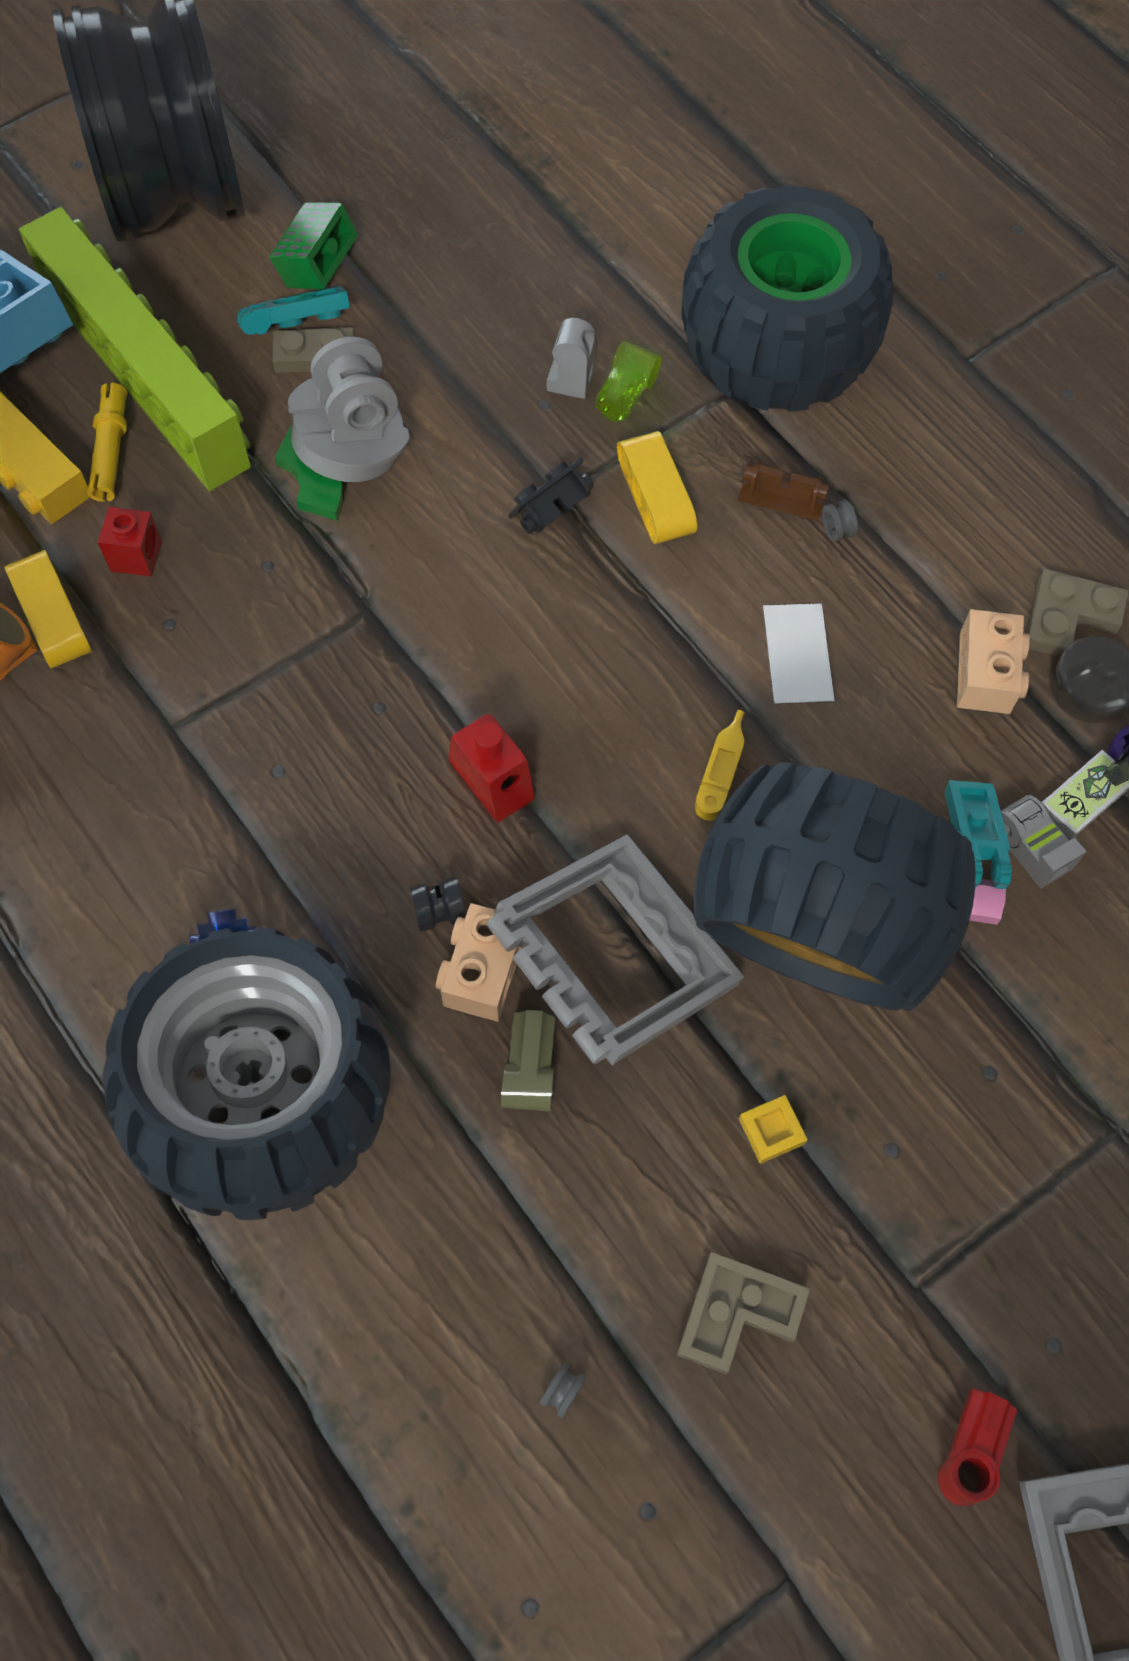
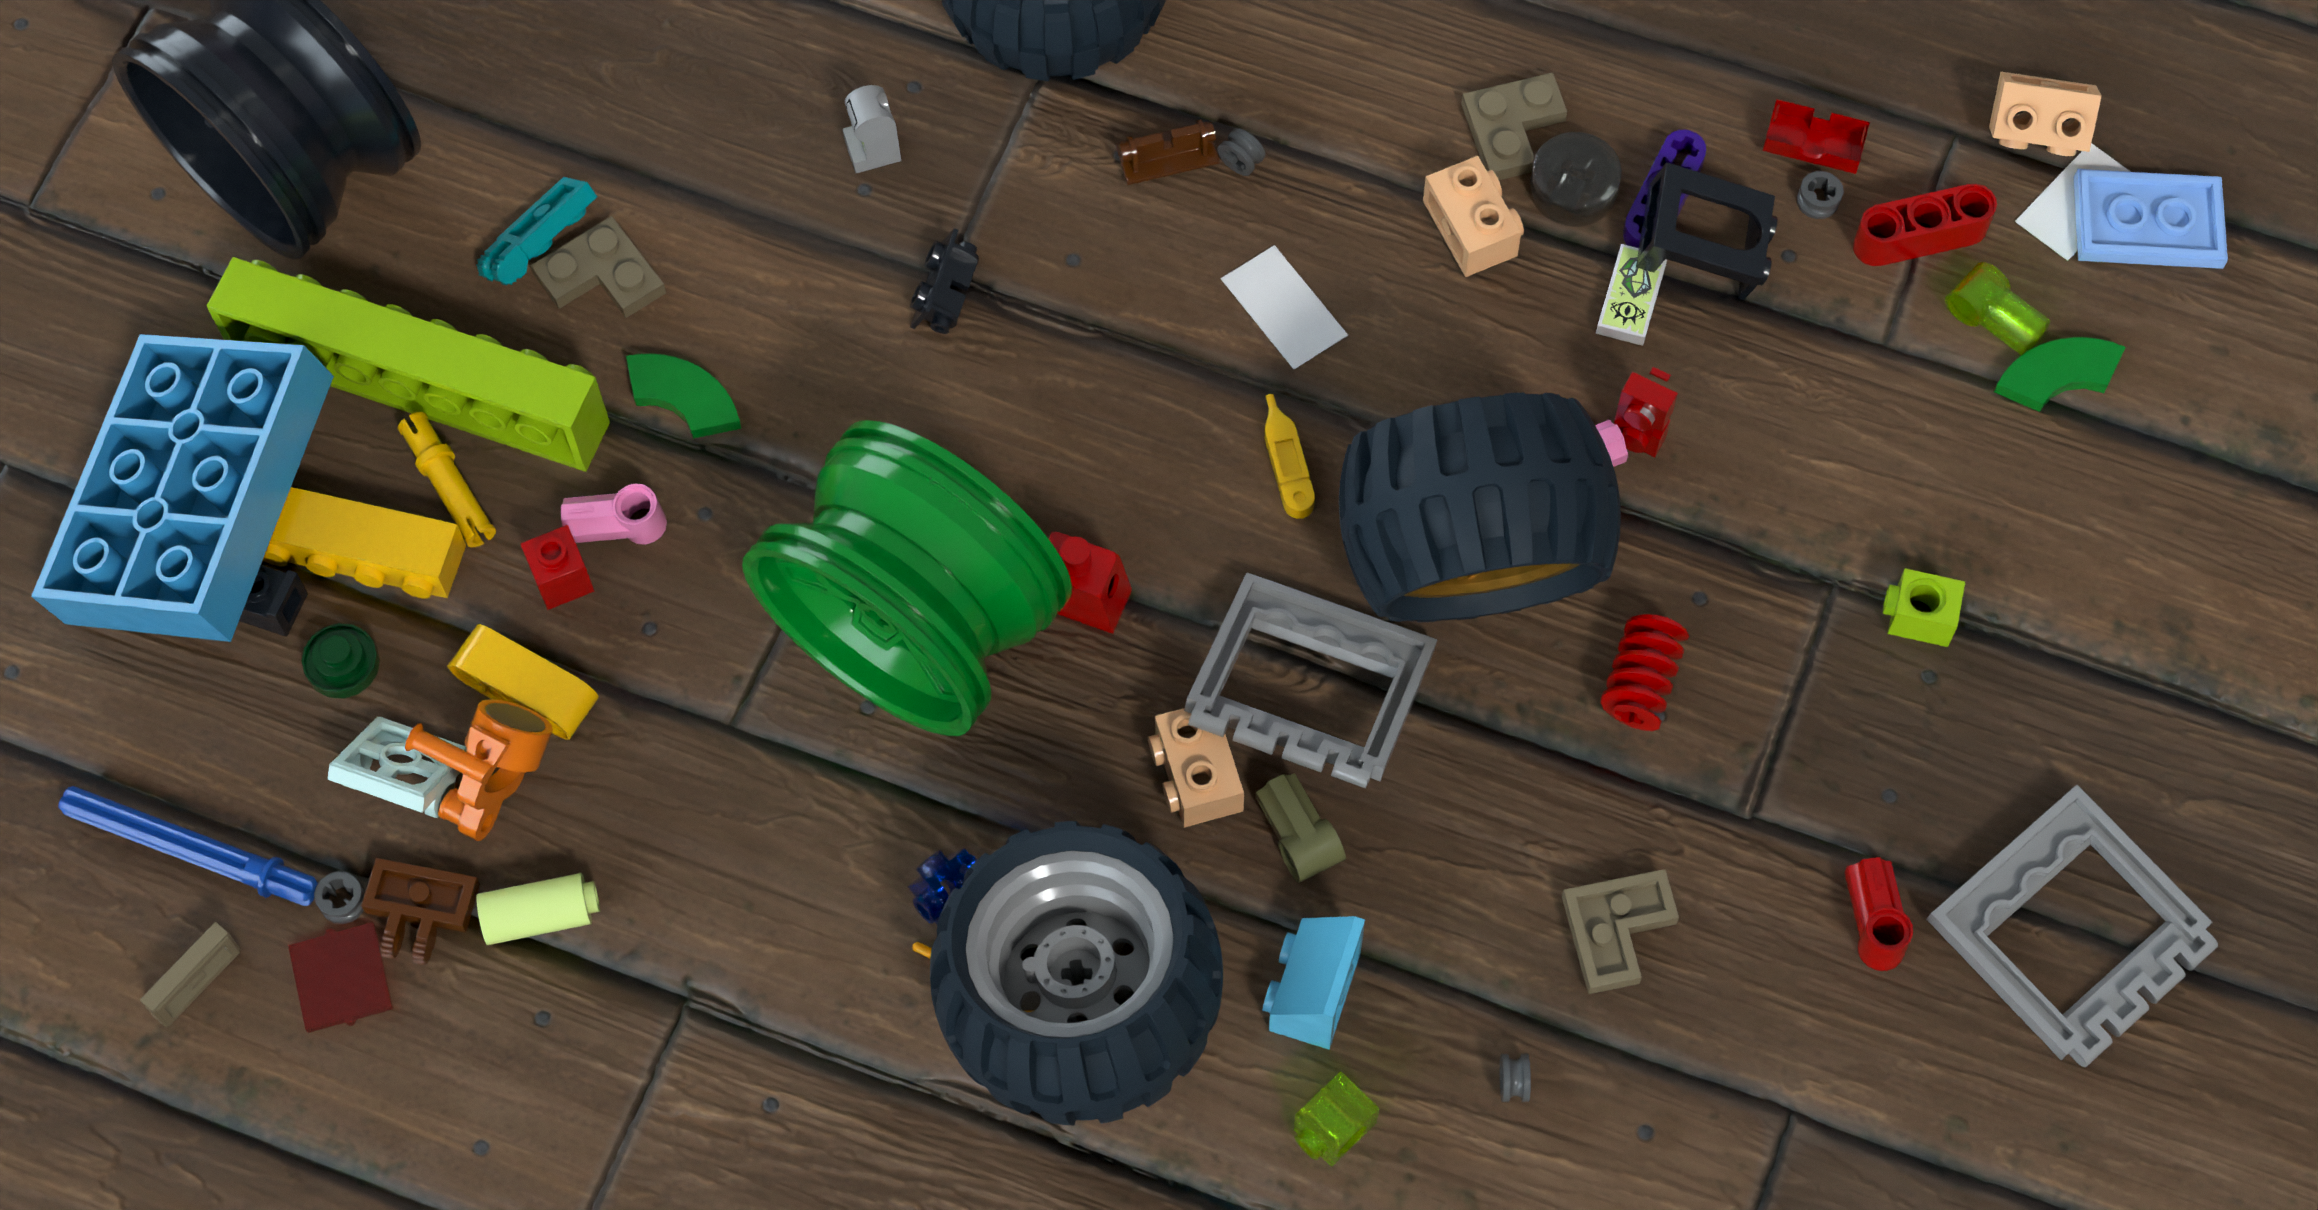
camera: 30 degrees left, 0 degrees up
(199, 529) = (609, 516): none -> bright pink piece
(314, 245) = (508, 149): green brick -> none
(344, 677) = (908, 576): none -> green wheel
(347, 415) = (690, 319): light grey piece -> none
(388, 1328) = (1334, 1120): none -> clear neon green brick
(437, 903) = (1116, 738): black wheel -> none
(454, 1198) = (1315, 979): none -> medium azure slope
(630, 373) = (936, 112): clear neon green piece -> none
(656, 487) = (1042, 216): yellow beam -> none
(772, 1129) = (1547, 757): yellow plate -> none
(897, 1103) = (1643, 671): none -> red piece
(977, 815) = (1549, 369): teal hinge -> none
(1035, 892) = (1645, 412): none -> red piece
(1039, 842) = (1610, 360): light grey leg -> none

